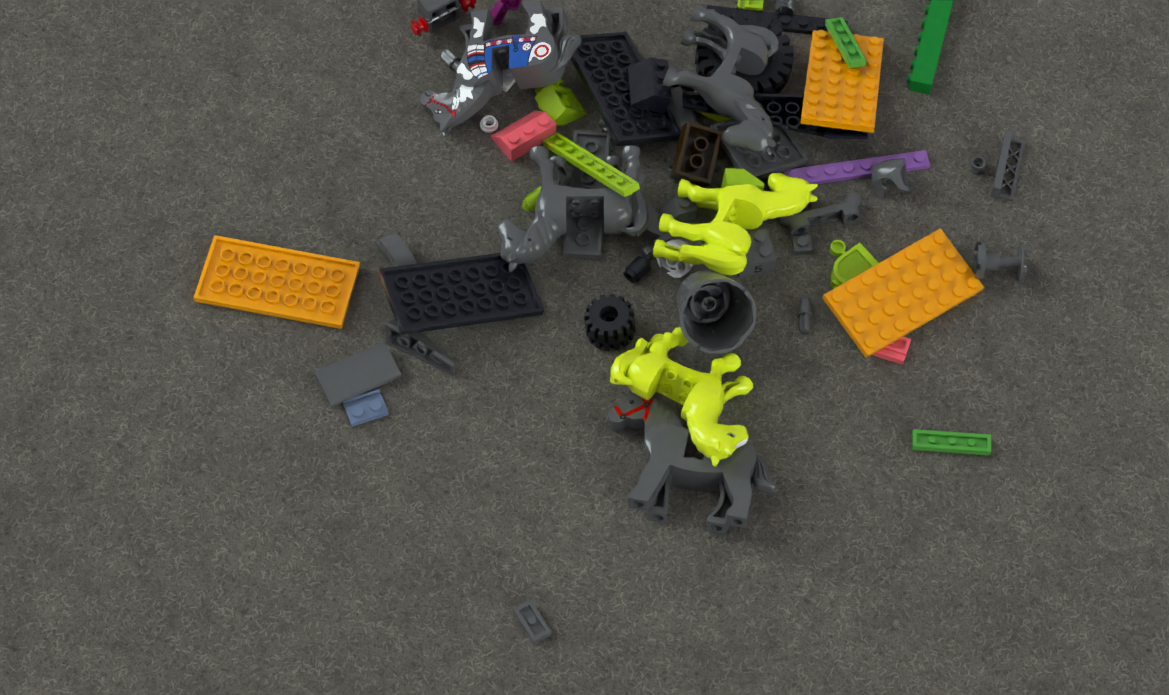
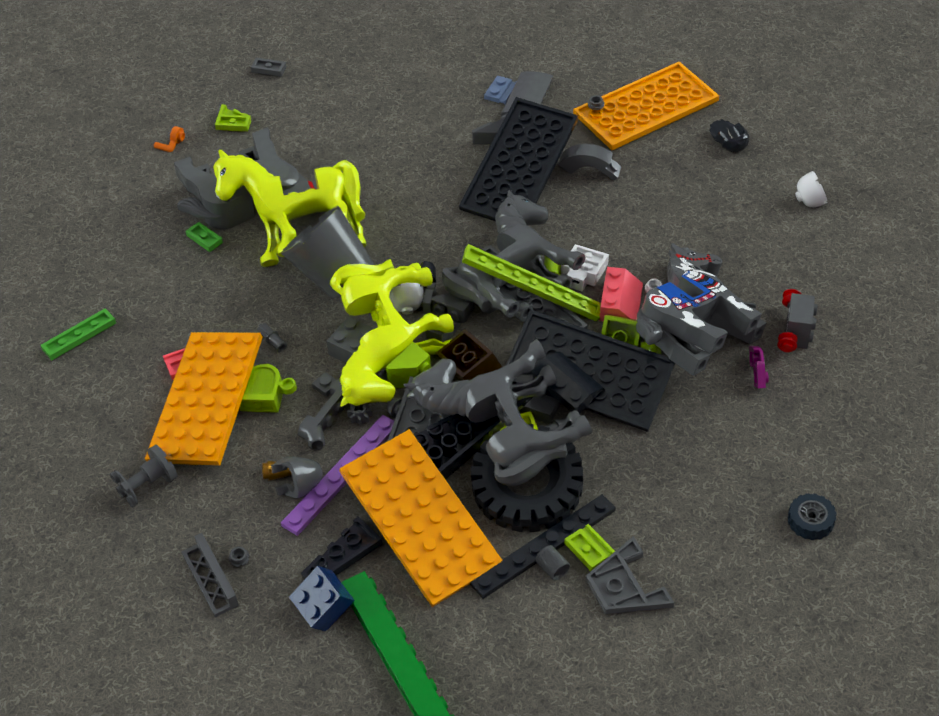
camera: 140 degrees right, 10 degrees down
(262, 190) = (730, 136): none -> black hair
(281, 93) = (810, 191): none -> white cylinder
(321, 303) = (596, 102): none -> dark grey plate
(517, 177) = (591, 270): none -> white piece
(609, 322) = (402, 223): black wheel -> none
(628, 579) = (232, 120): none -> lime wing
(697, 599) = (177, 134): none -> orange plate
(772, 456) = (204, 236): none -> bright green plate
(845, 42) = (452, 549): bright green plate -> none
(899, 203) = (267, 472): none -> pearl gold cone
(905, 113) = (348, 549): none -> black wing
(953, 83) = (321, 598): none -> dark blue brick

